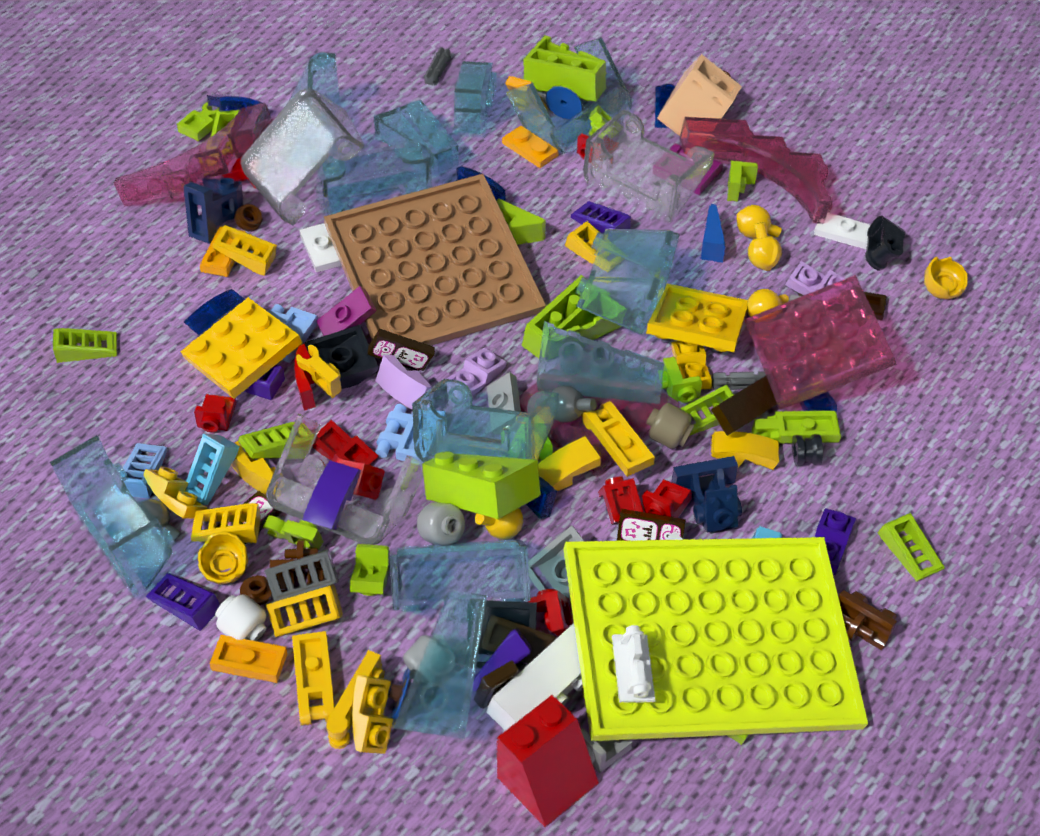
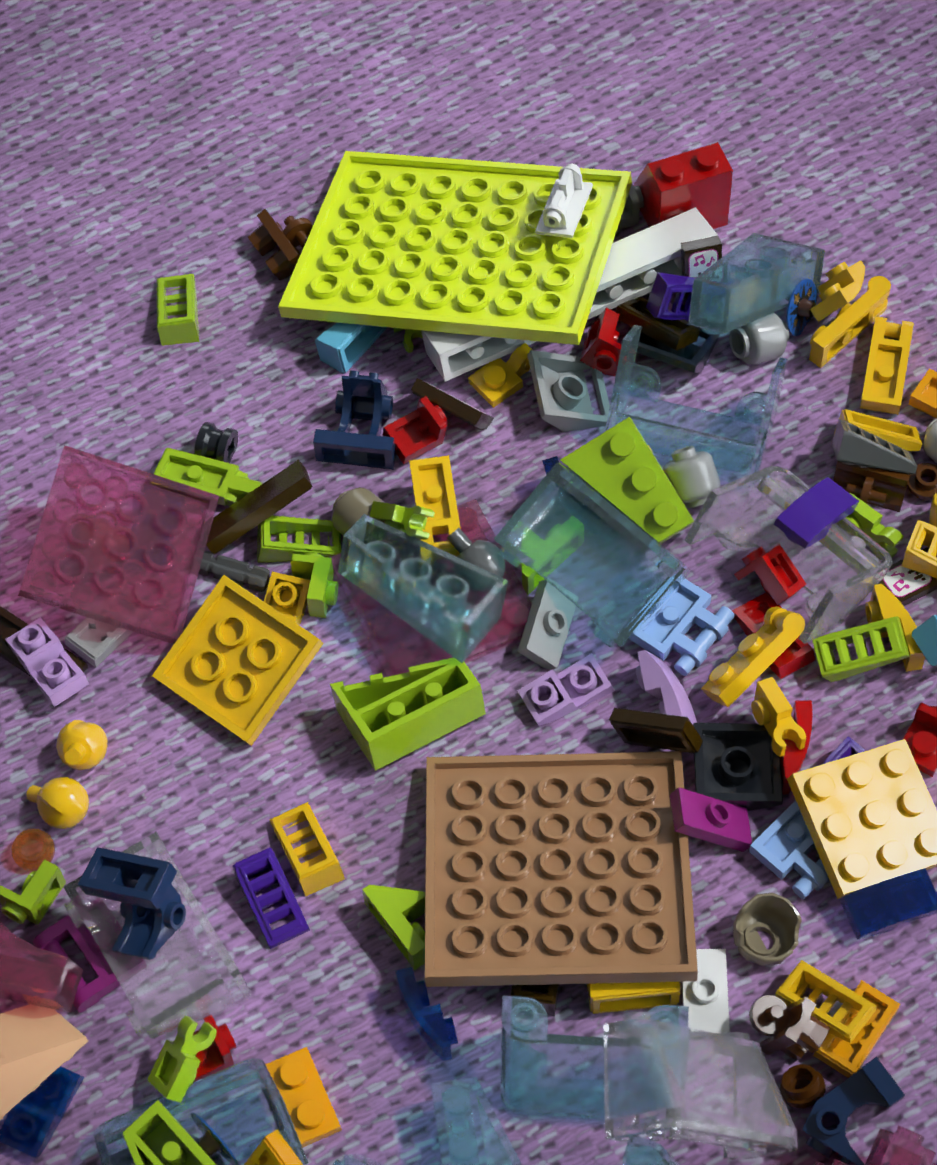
camera: 155 degrees left, 10 degrees up
(264, 224) = (789, 1027): none -> reddish brown hips
(298, 272) = (769, 914): none -> dark tan hair
(350, 415) = (754, 655): none -> yellow plate
(370, 569) = (793, 450): lime bracket -> none
(568, 462) = (496, 505): yellow slope -> none
(620, 495) = (467, 456): red bracket -> none
(628, 275) = (294, 721): clear light blue windscreen -> none
(634, 408) = (405, 519): none -> lime plate
(663, 160) = (146, 896): none -> dark blue tile
(713, 241) = (137, 796): blue slope -> none
(746, 446) = (271, 458): yellow slope -> none
(756, 198) = (32, 848): none -> clear orange plate
(764, 300) = (134, 661): yellow piece -> none
(836, 530) = (253, 347): dark purple slope -> none

